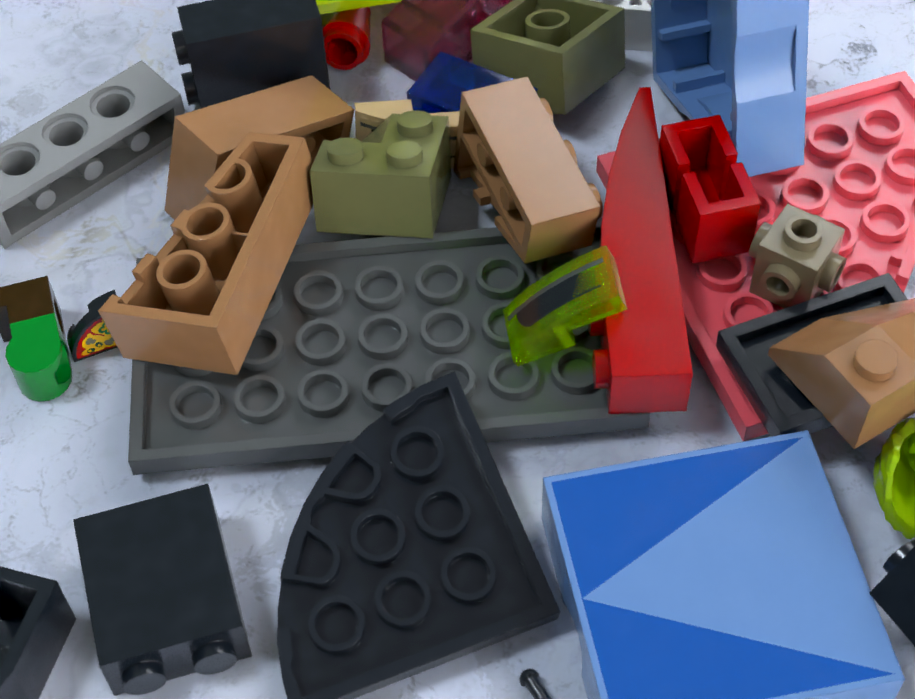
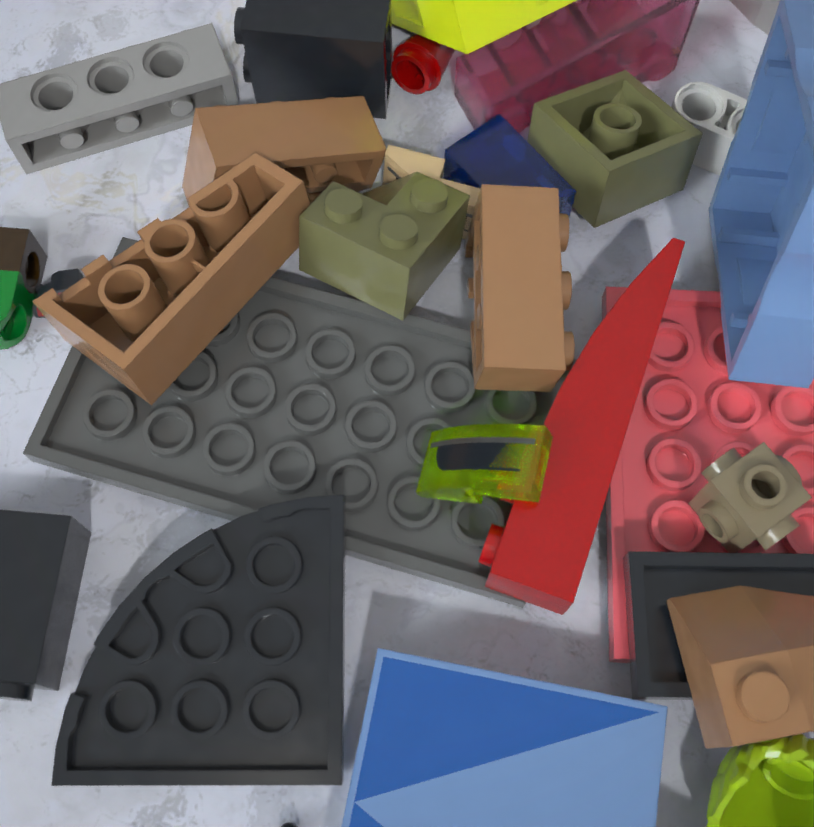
camera: 20 degrees right, 15 degrees up
(708, 189) = (690, 359): red piece -> none

